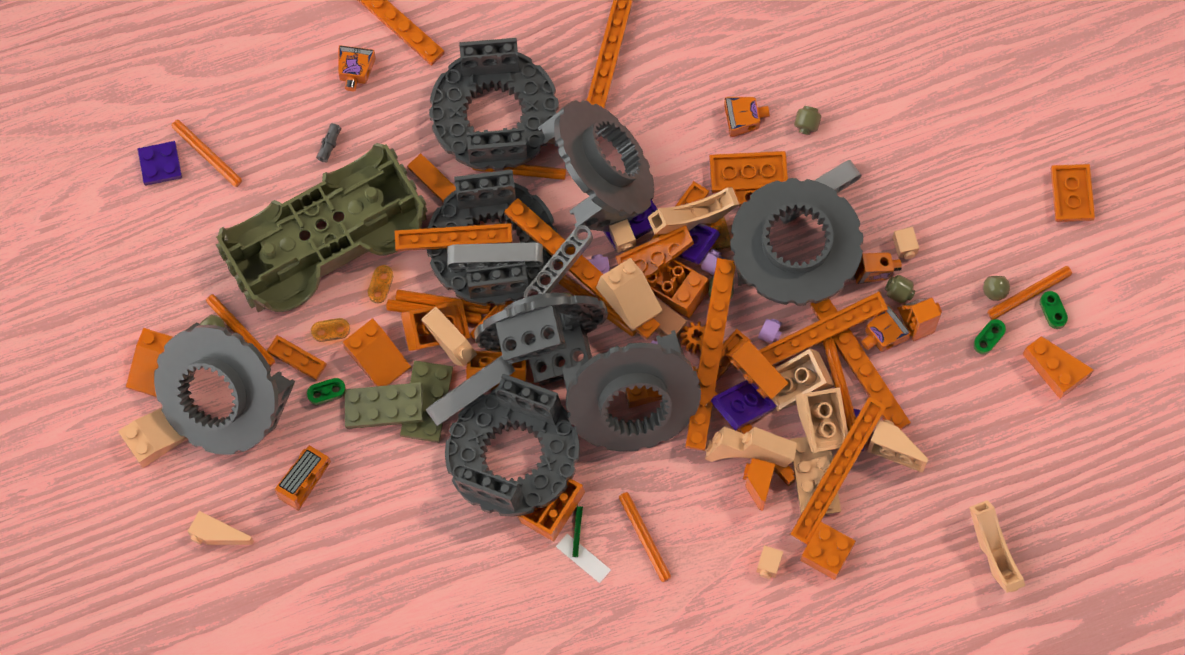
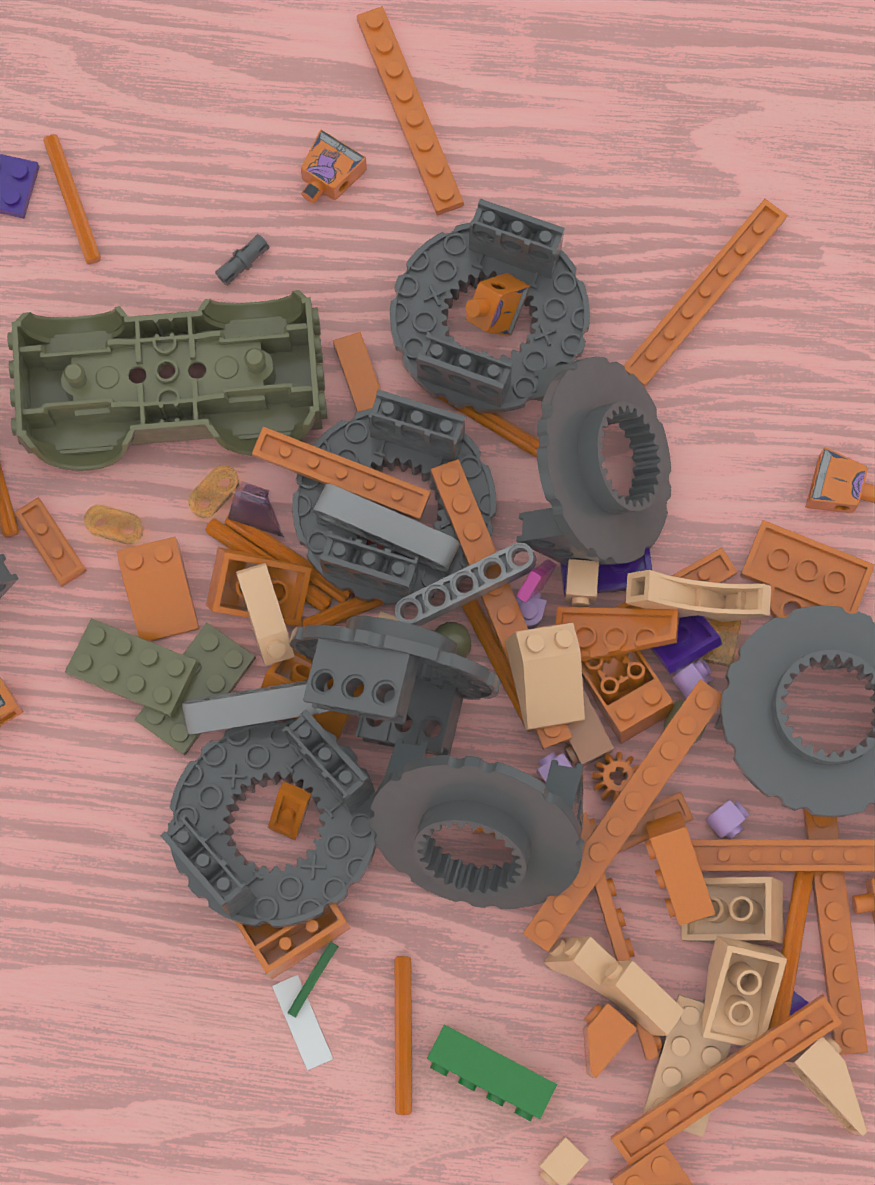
camera: 25 degrees right, 5 degrees up
(326, 390) = (65, 609): green plate -> none
(409, 283) = (253, 508): none -> slope
(495, 99) = (497, 304): none -> orange torso
(517, 441) = (289, 810): none -> orange plate
(596, 245) = (536, 580): none -> dark pink tile
(705, 532) = (492, 1072): none -> green brick
(742, 404) = (633, 912): dark purple plate -> none

